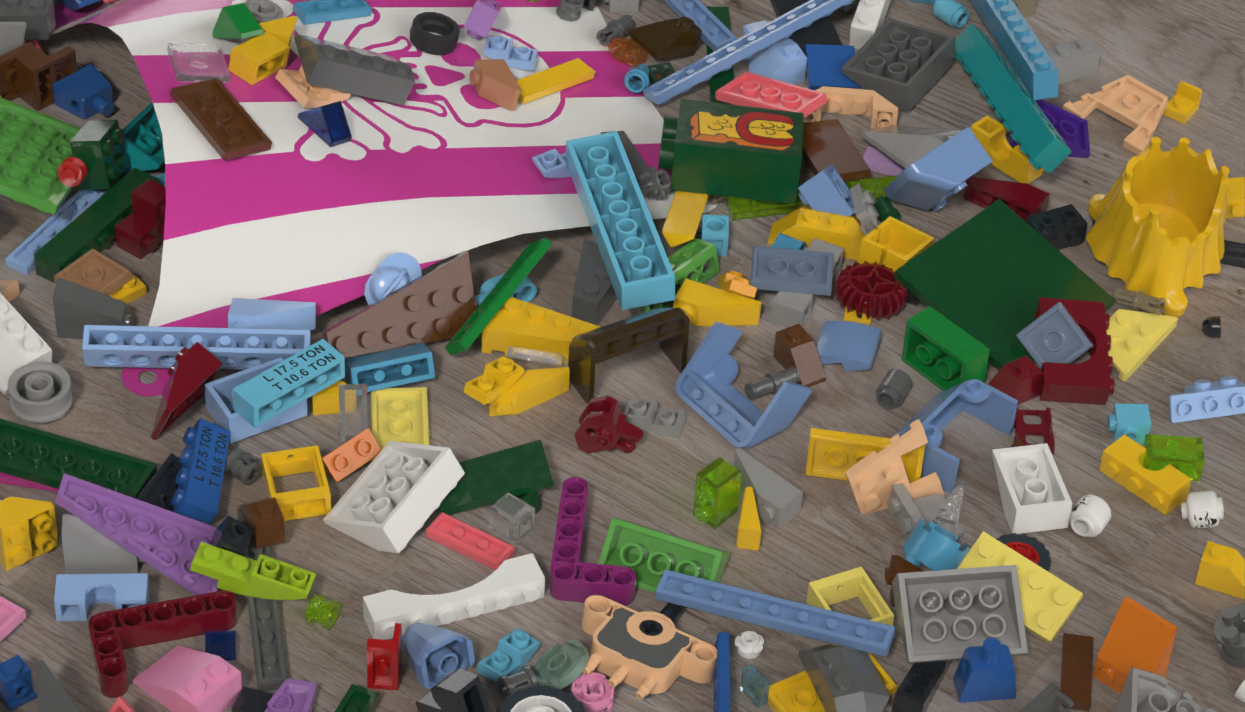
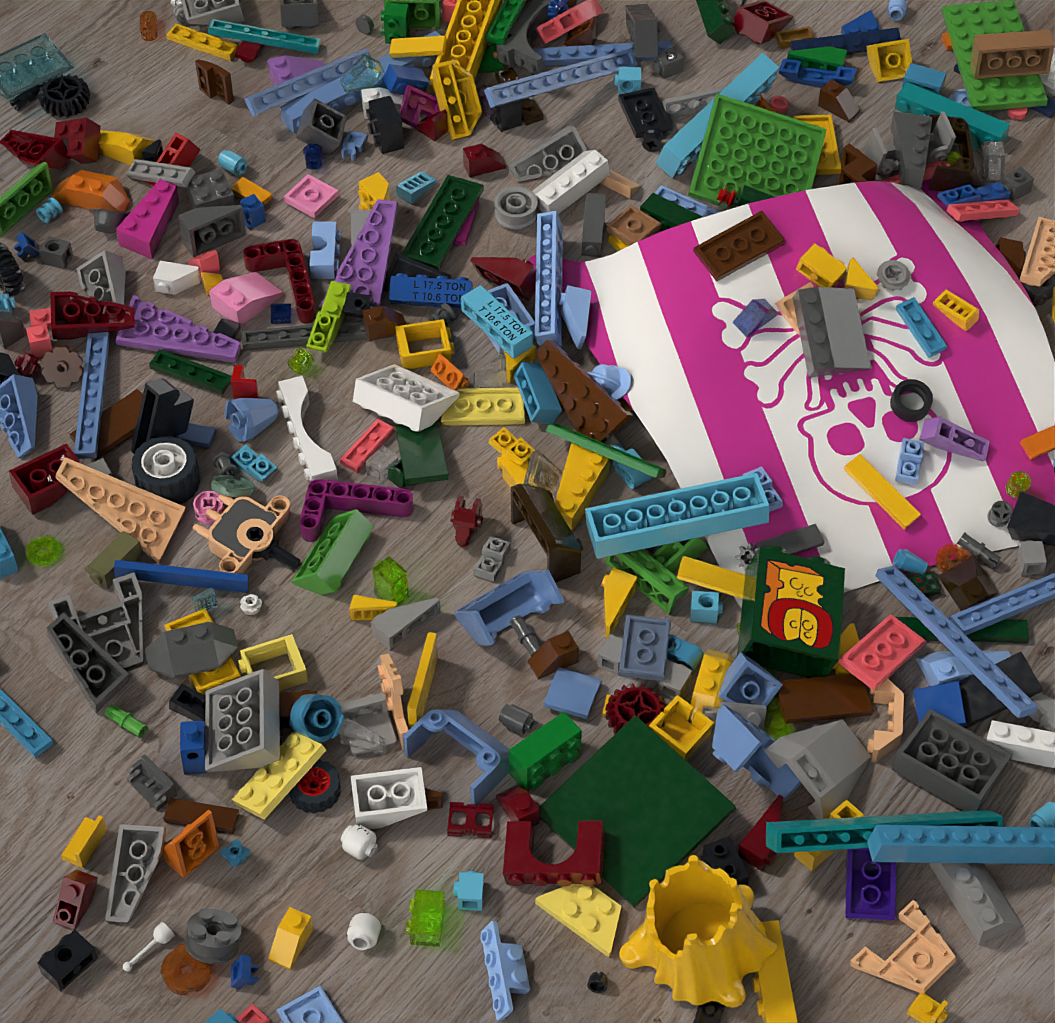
camera: 95 degrees right, 10 degrees up
(198, 62) = (806, 229): clear tile -> none
(236, 23) = (848, 247): green slope -> none
(495, 82) = (856, 440): nougat slope -> none
(735, 283) = (623, 607): light orange slope -> none
(775, 613) = (256, 608): medium blue plate -> none
(1054, 337) = (558, 834): sand blue tile -> none
(1139, 300) = (628, 923): dark tan axle -> none
(1160, 488) = (389, 903): yellow arch -> none

